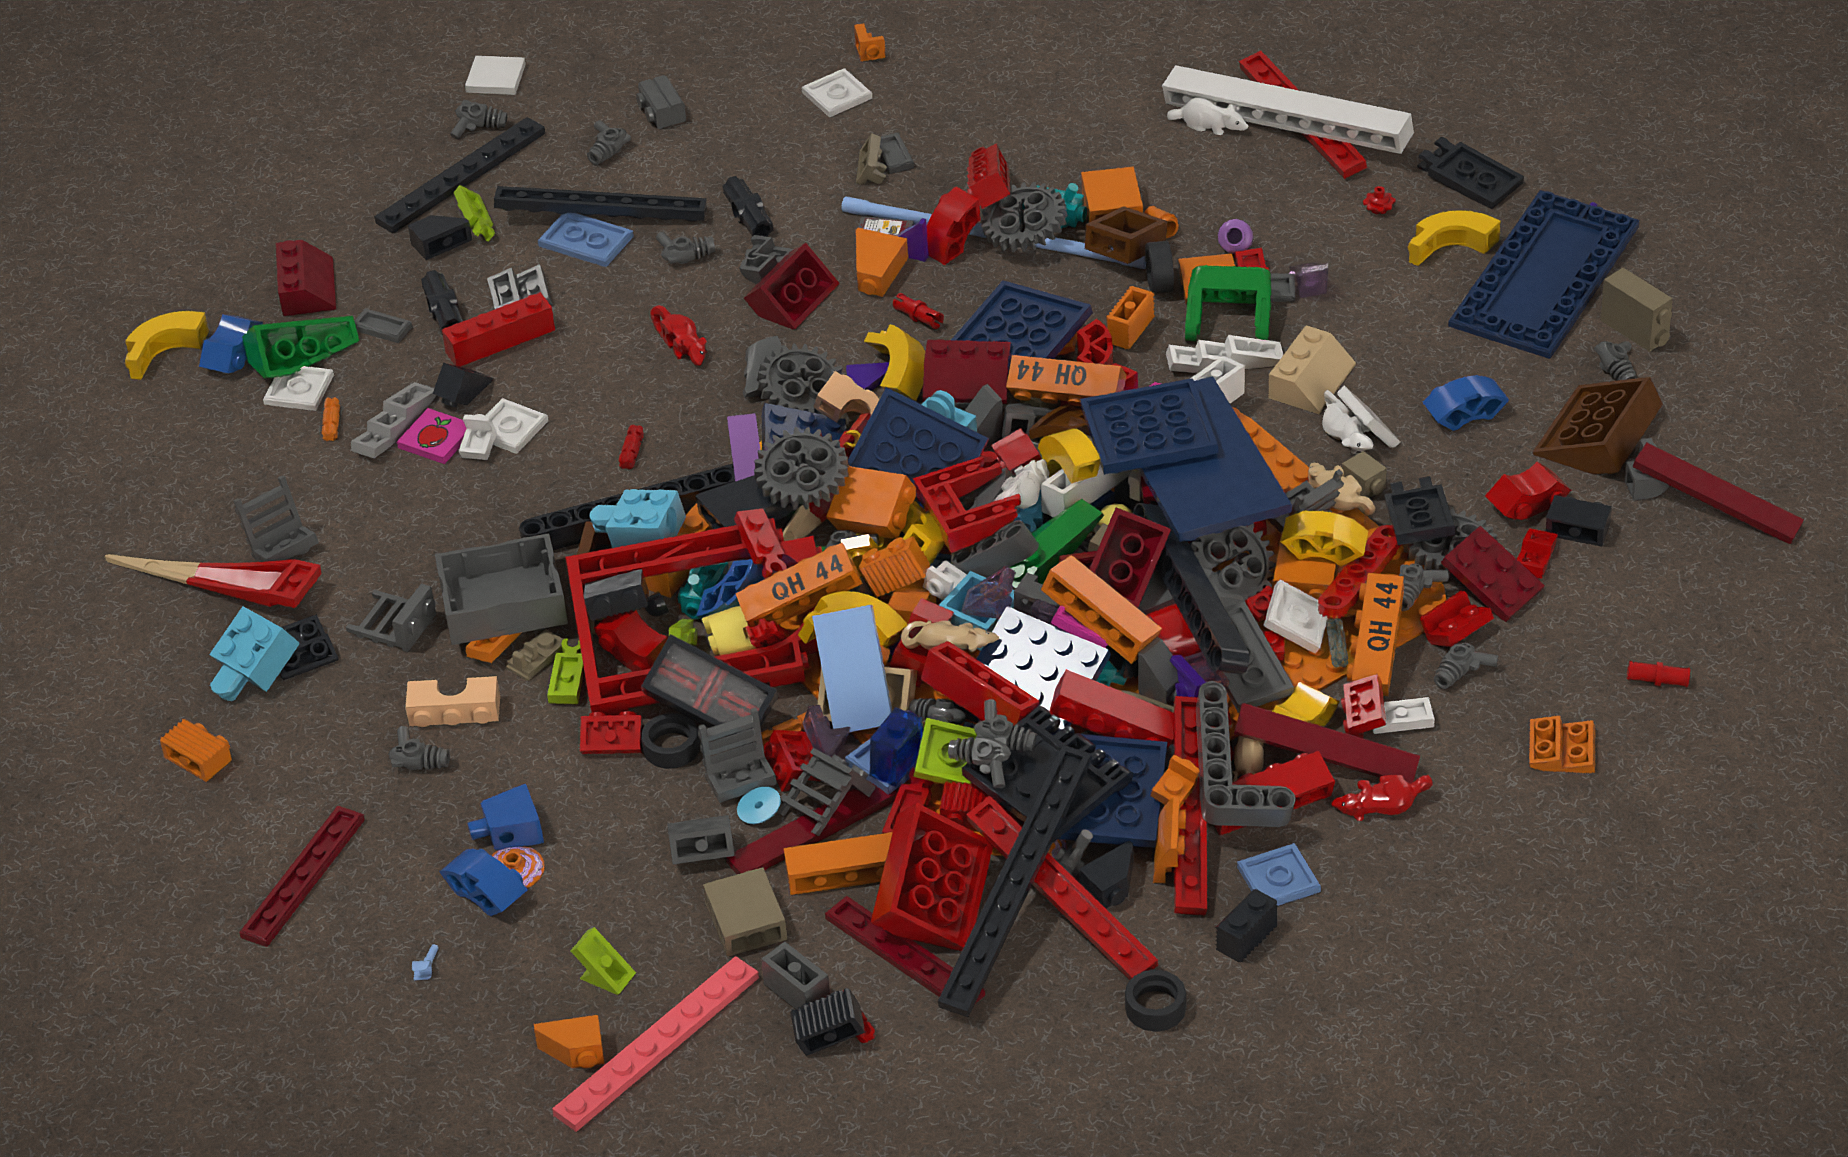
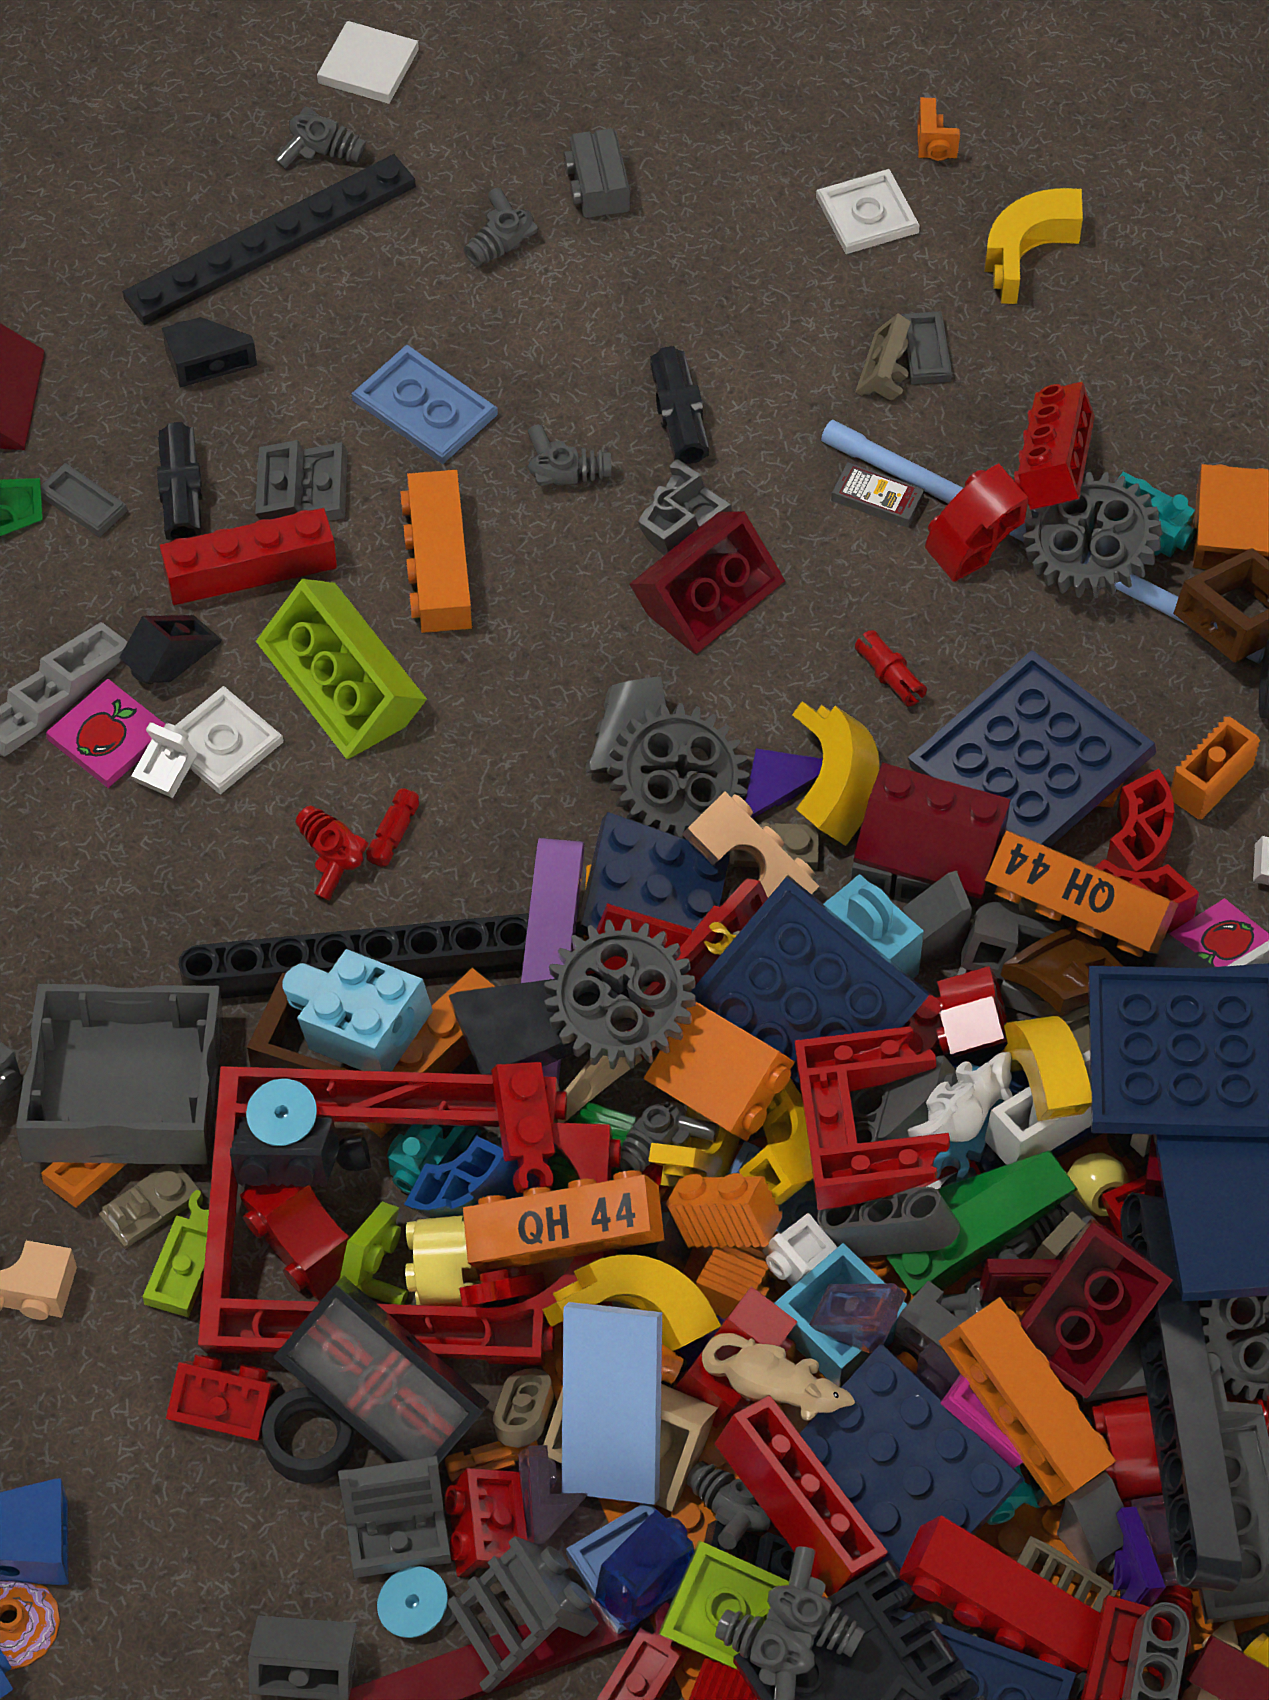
camera: 10 degrees right, 15 degrees up
(475, 211) = (271, 319): lime plate -> none
(573, 374) = (339, 667): none -> lime slope
(597, 460) = (334, 844): none -> red piece
(600, 203) = (459, 348): black plate -> none
(610, 569) = (281, 1112): none -> medium azure piece
(617, 306) = (438, 551): none -> orange brick
(680, 333) = (519, 628): red animal -> none
(798, 698) = (523, 1407): none -> dark tan plate
(878, 260) = (851, 557): orange slope -> none
(916, 240) = (907, 535): dark purple tile -> none
(941, 77) = (1027, 223): none -> yellow arch

